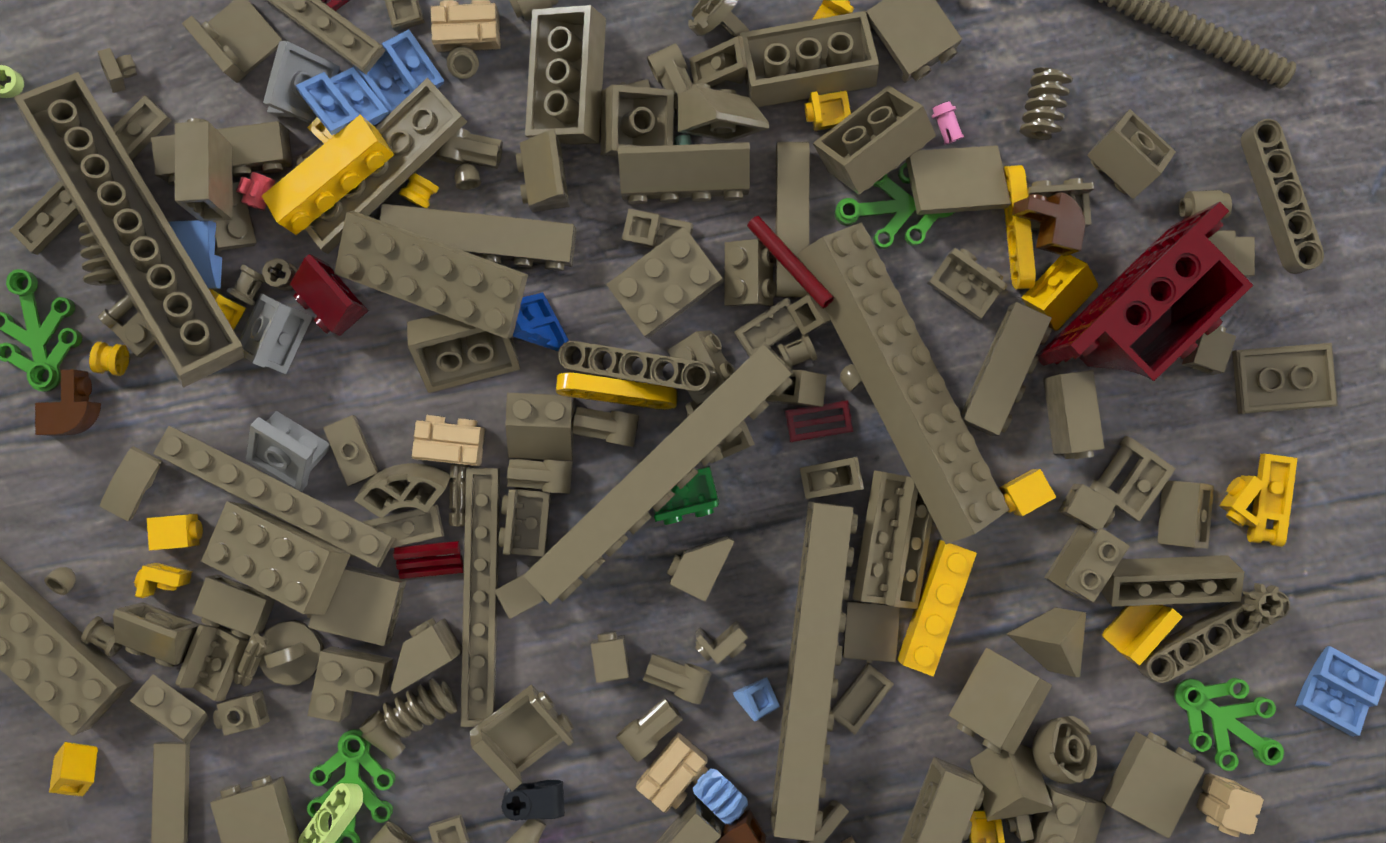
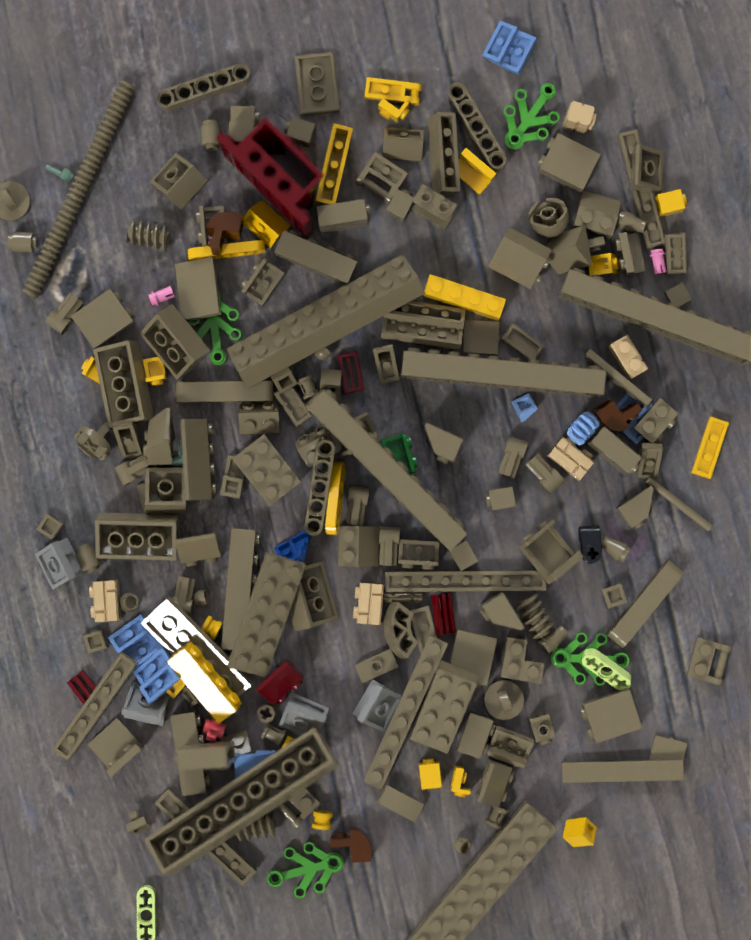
camera: 90 degrees left, 0 degrees up
(169, 709) = (540, 771): dark tan brick -> none
(250, 660) = (508, 722): dark tan axle -> none
(728, 643) = (489, 423): dark tan bracket -> none
(790, 262) = (248, 396): dark red piece -> none
(1027, 492) = (392, 243): yellow brick -> none
(1054, 640) = (483, 224): dark tan slope -> none
(1159, 401) = (333, 165): none -> yellow brick
(1273, 603) = (459, 95): dark tan gear -> none

